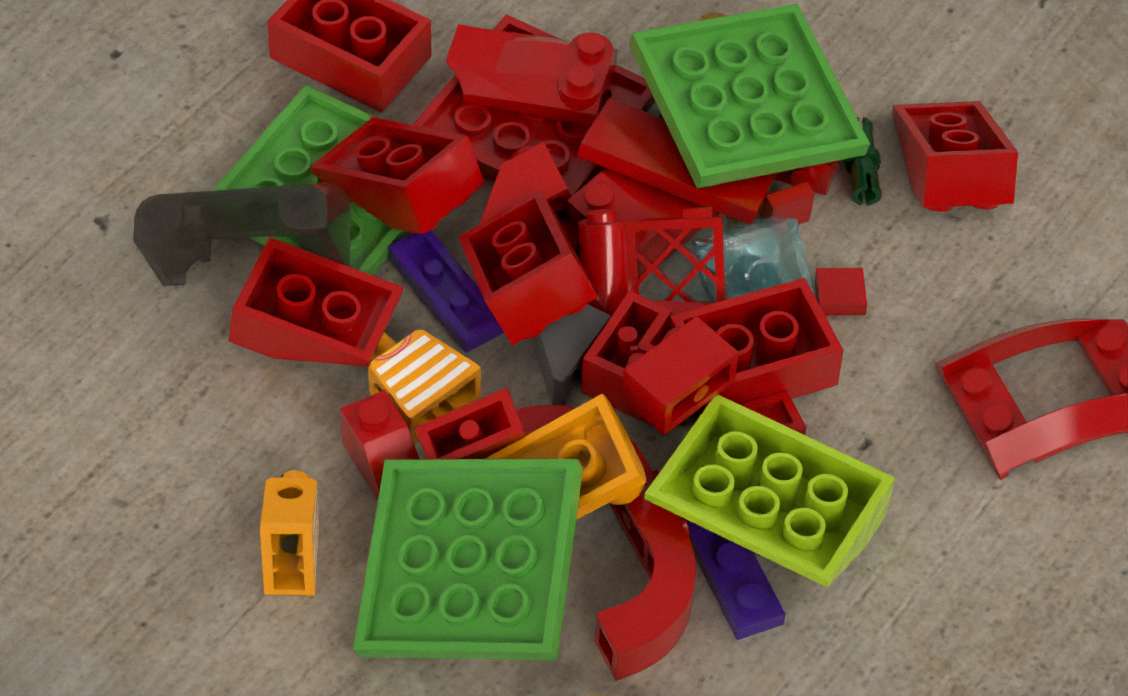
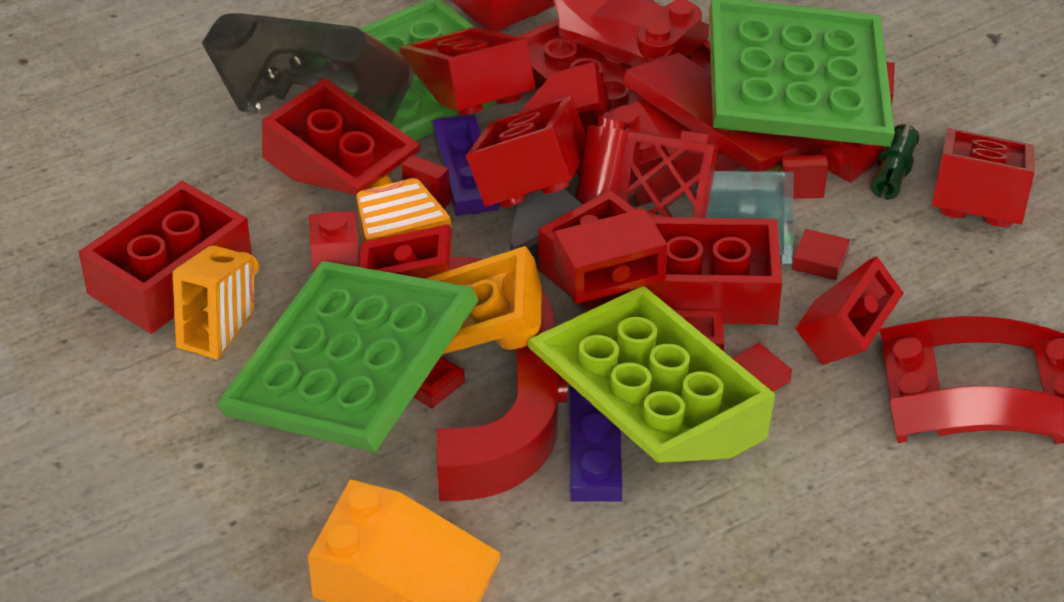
camera: 25 degrees right, 10 degrees down
(209, 499) = (136, 259): none -> red brick
(421, 317) = (431, 175): none -> red plate
(848, 437) = (764, 366): none -> red tile
(909, 359) = (850, 313): none -> red slope

